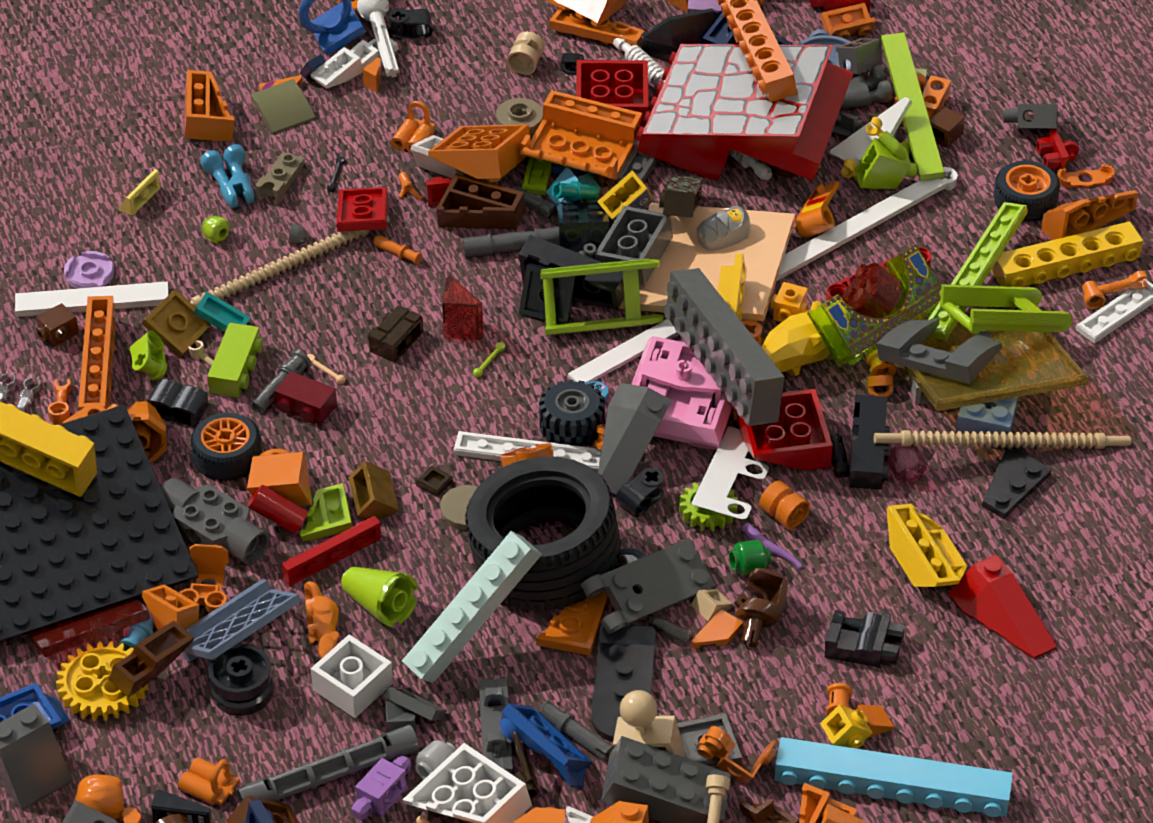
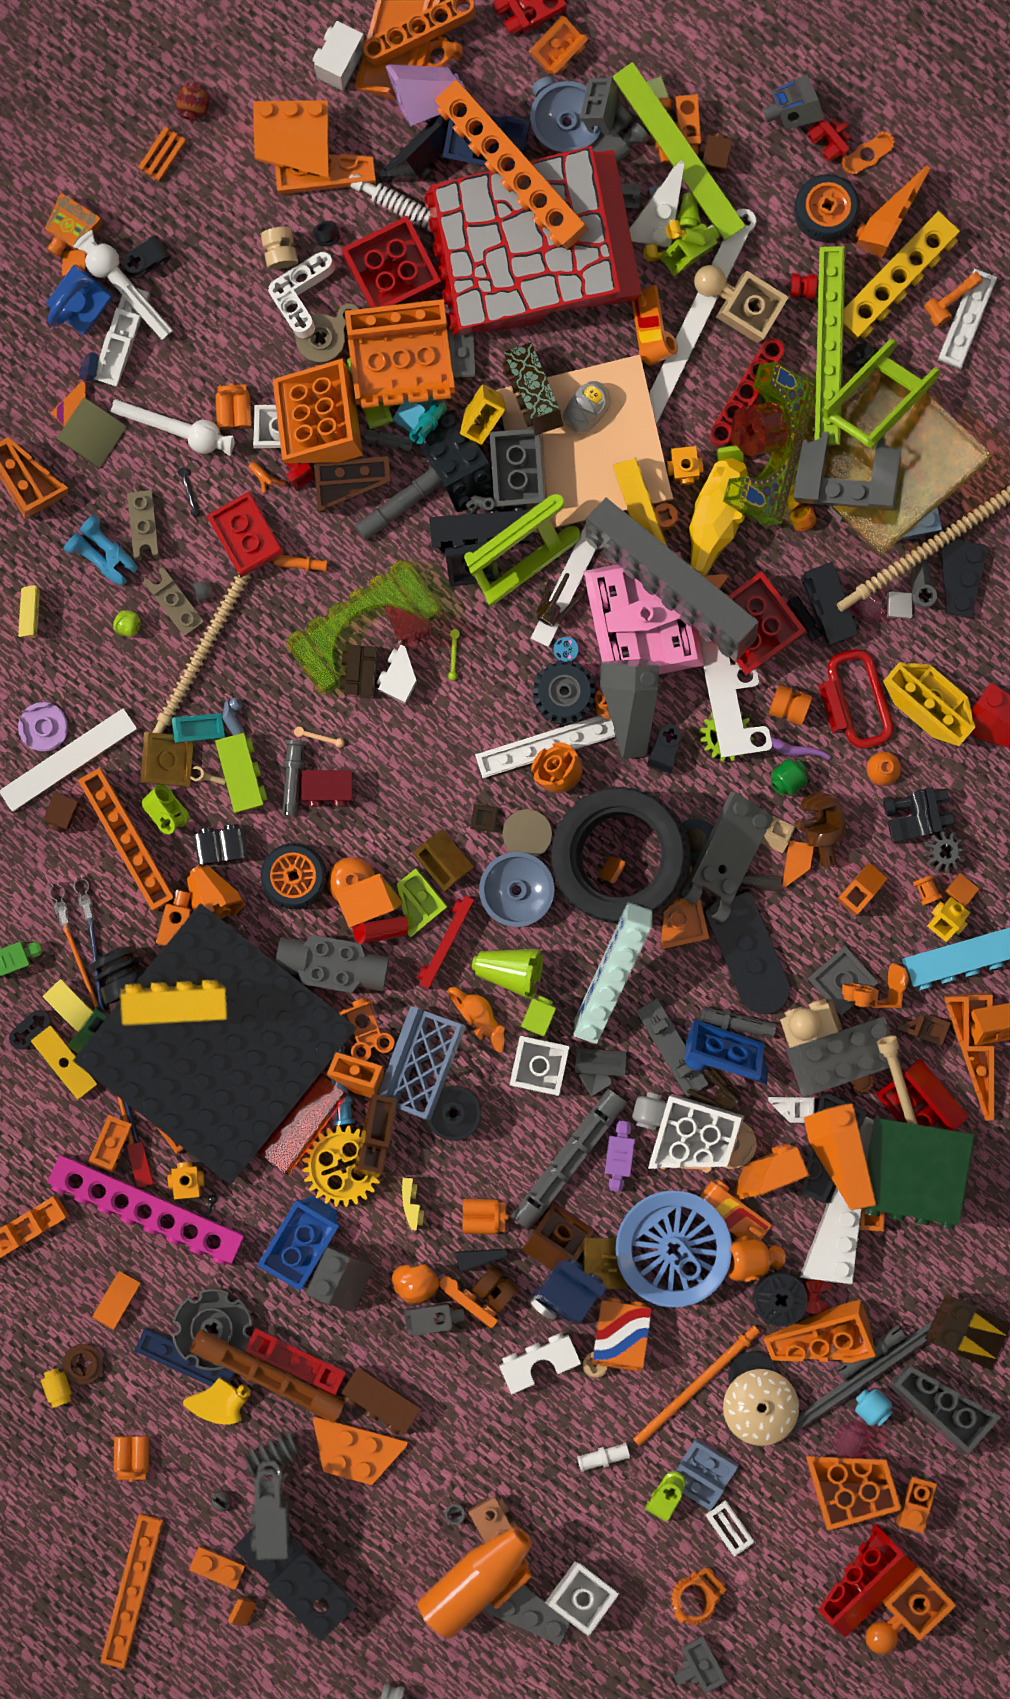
camera: 30 degrees left, 40 degrees up
(59, 410) = (127, 906): orange brick -> none
(141, 744) = (412, 1211): none -> light yellow slope
(260, 319) = (229, 715): none -> sand blue arm
(267, 232) = (174, 603): none -> dark tan plate
(369, 301) = (315, 645): none -> clear neon green arch
(372, 75) = (150, 349): orange slope -> none
(372, 136) = (202, 435): none -> white piece
(379, 629) = (538, 1016): none -> lime brick
(426, 523) = (522, 871): none -> sand blue dish
(427, 350) = (400, 678): none -> white slope
(512, 82) = (290, 295): none -> white beam
(599, 354) = (549, 612): none -> dark brown plant
(767, 670) = (861, 889): none -> orange slope
(831, 528) = (837, 707): none -> red bar
(850, 593) = (883, 768): none -> orange brick
(874, 677) = (953, 854): none -> dark grey gear
(912, 219) = (735, 311): none -> tan brick
(937, 479) = (899, 605): none -> white slope
(970, 472) = (921, 581): none -> dark grey piece
(971, 231) = (809, 285): none -> red wheel

